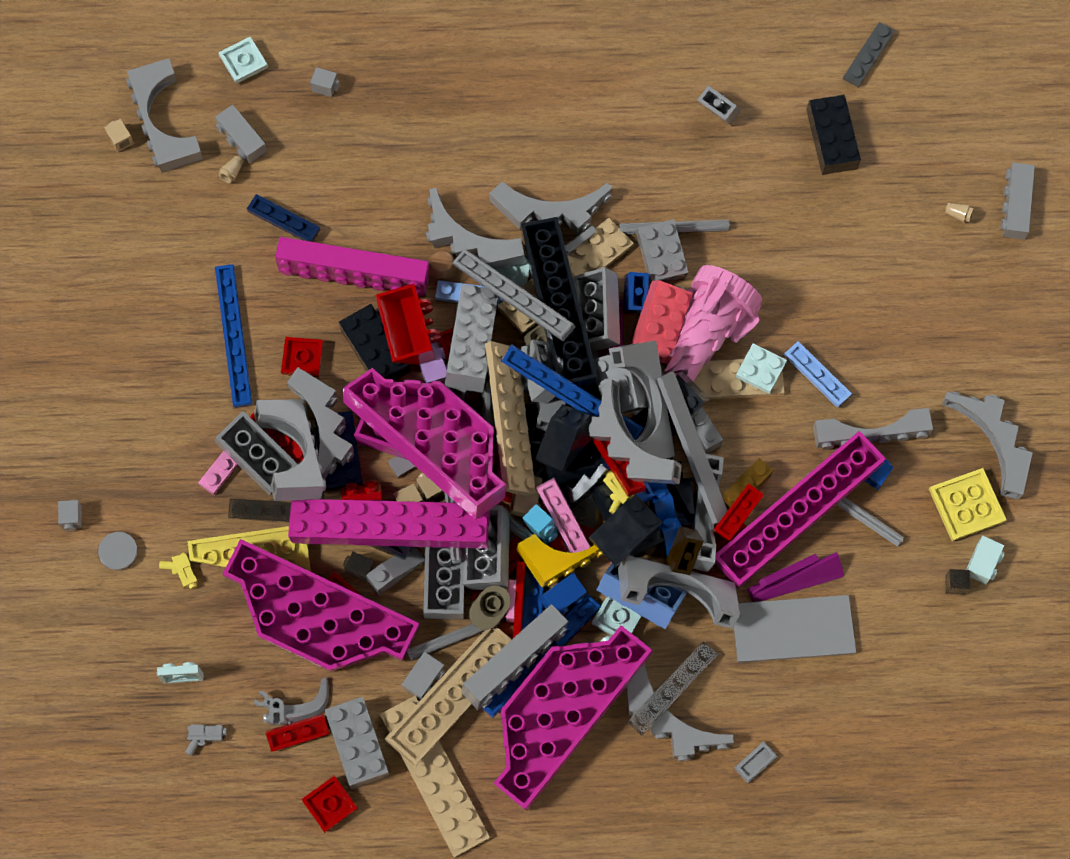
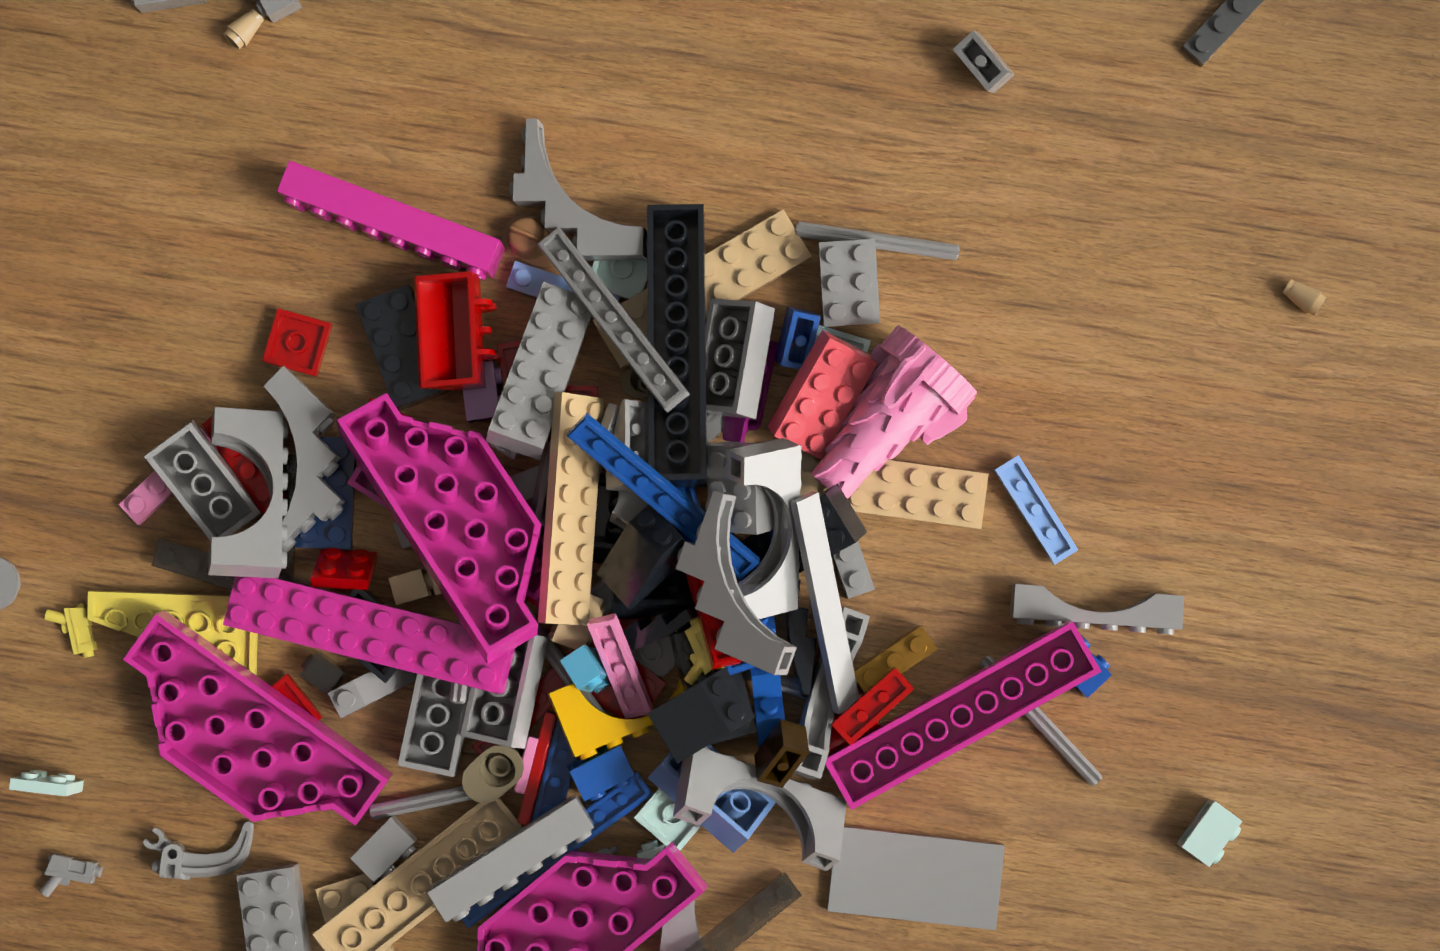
camera: 15 degrees right, 15 degrees up
(233, 336) = (205, 289): blue tile -> none
(283, 219) = (306, 122): dark blue plate -> none
(297, 732) = (195, 894): red plate -> none
(573, 213) = (732, 192): light grey arch -> none
(580, 239) = (731, 238): light grey tile -> none
(761, 368) = (954, 488): light aqua plate -> none
(798, 576) = (938, 804): magenta wedge -> none
(833, 134) = (1145, 139): black brick -> none
(957, 581) = (1163, 858): clear smoke brick -> none
(967, 504) = (1205, 746): light yellow plate -> none
(1002, 434) = (1287, 697): light grey arch -> none
(1018, 201) = (1395, 296): light grey brick -> none

